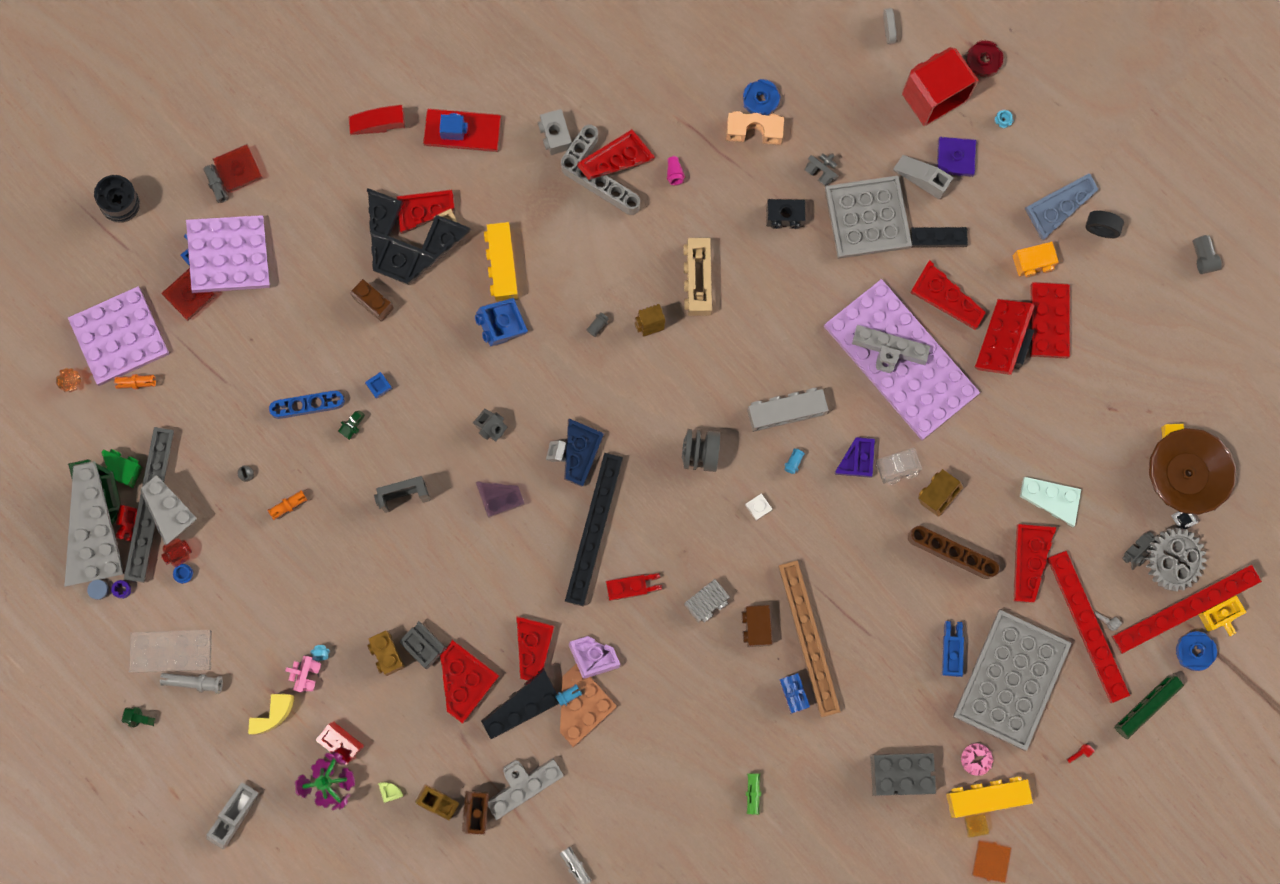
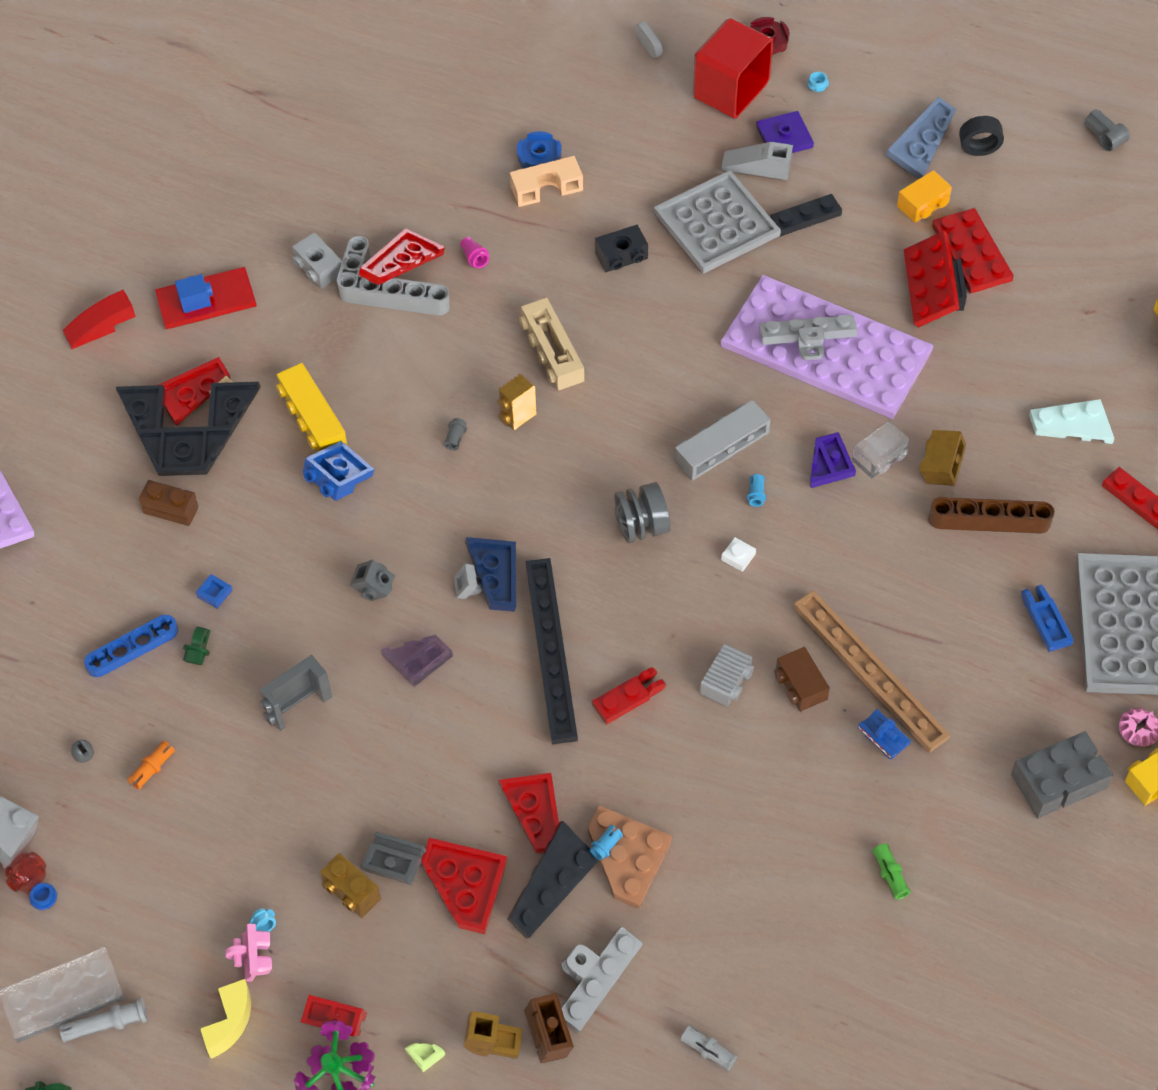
camera: 15 degrees left, 20 degrees down
(593, 657) = (616, 792): lavender plate -> none
(814, 164) = (643, 189): dark grey hips -> none
(943, 294) = (836, 265): red wing -> none
(1030, 559) = (1082, 487): red wing -> none

